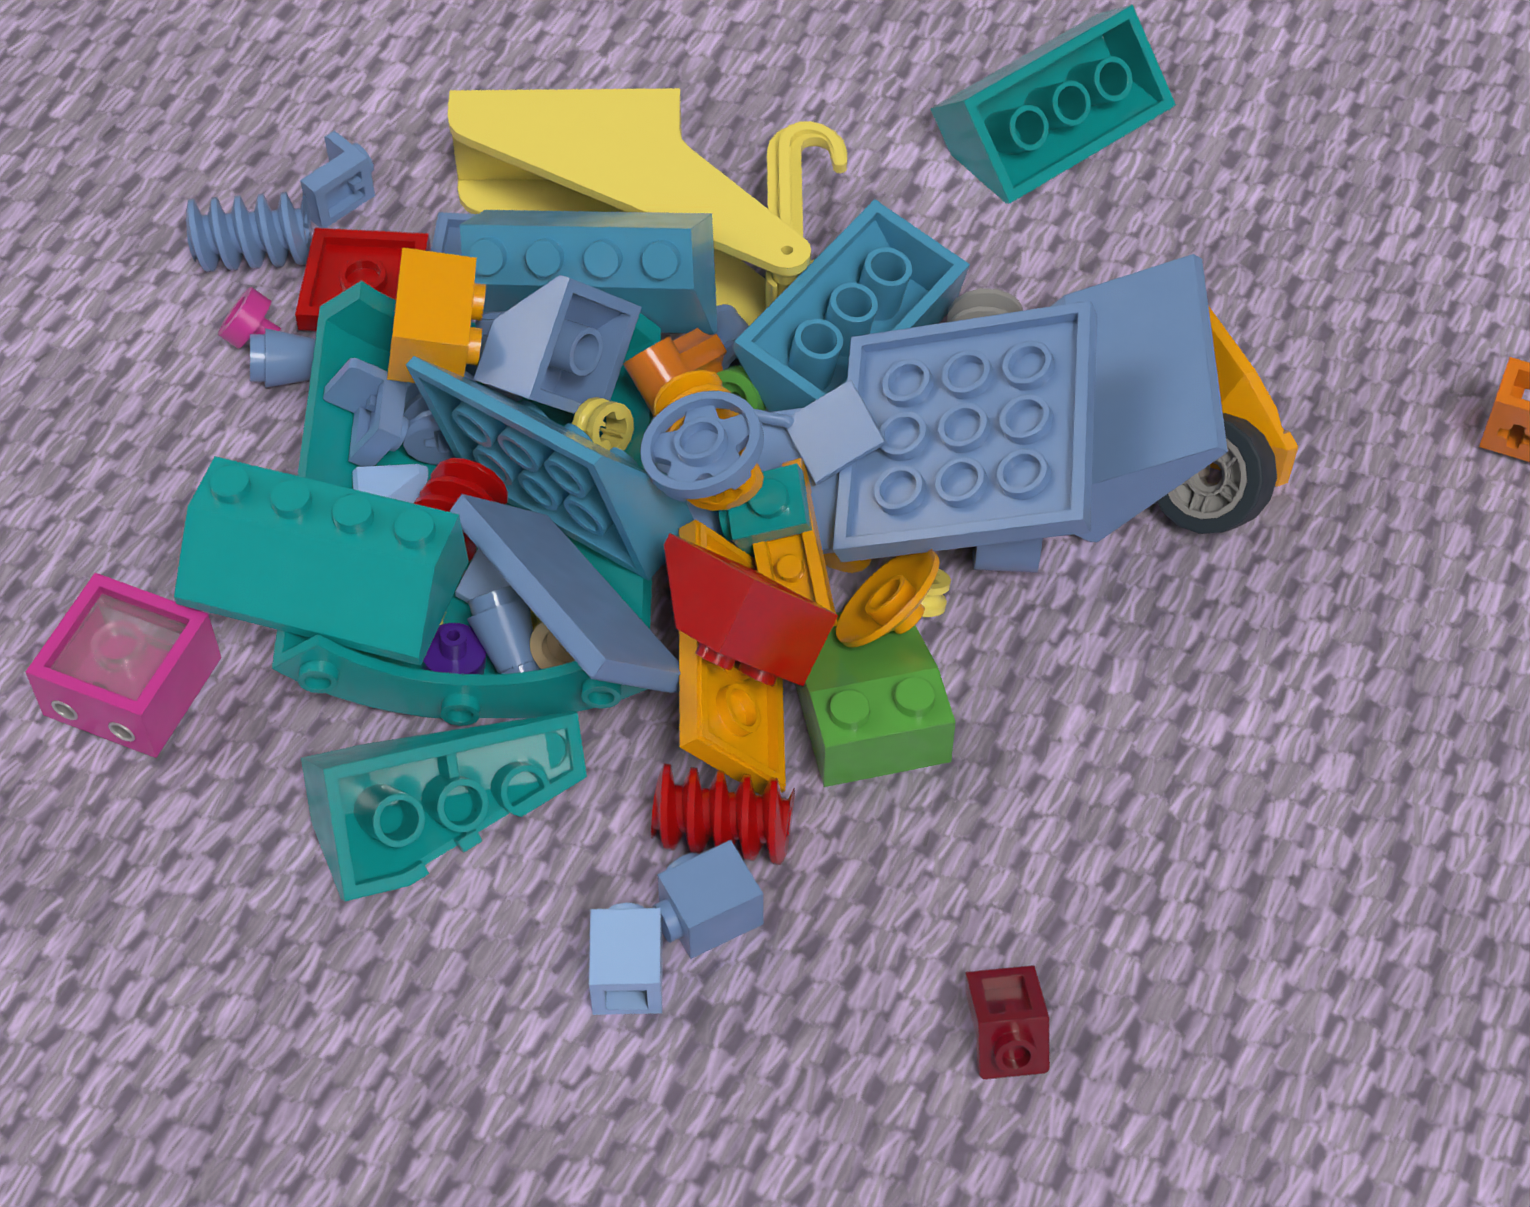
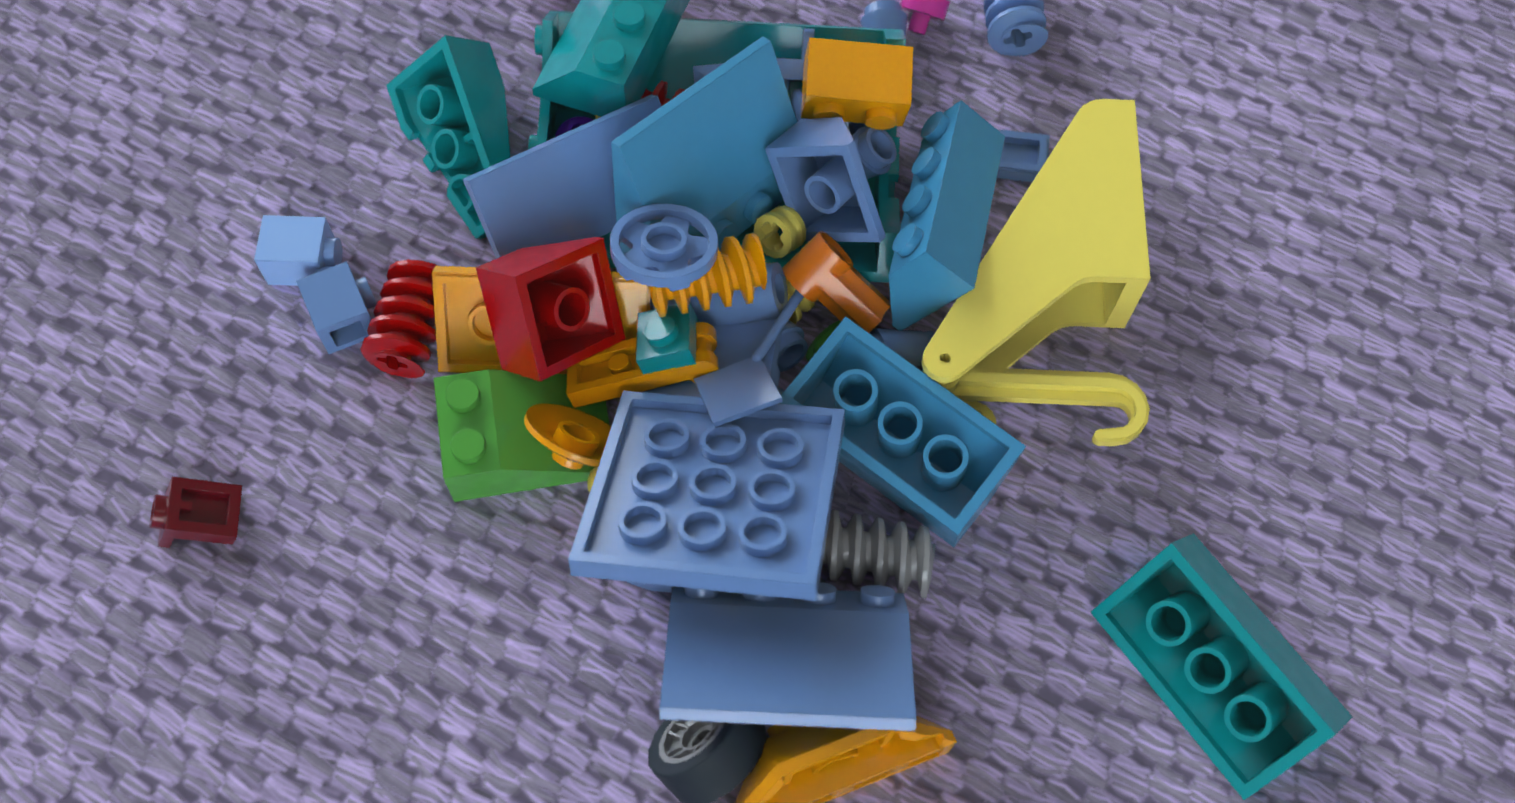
camera: 90 degrees right, 10 degrees up
(340, 183) = (1073, 63): medium blue bracket -> none
(349, 256) = (970, 71): red plate -> none

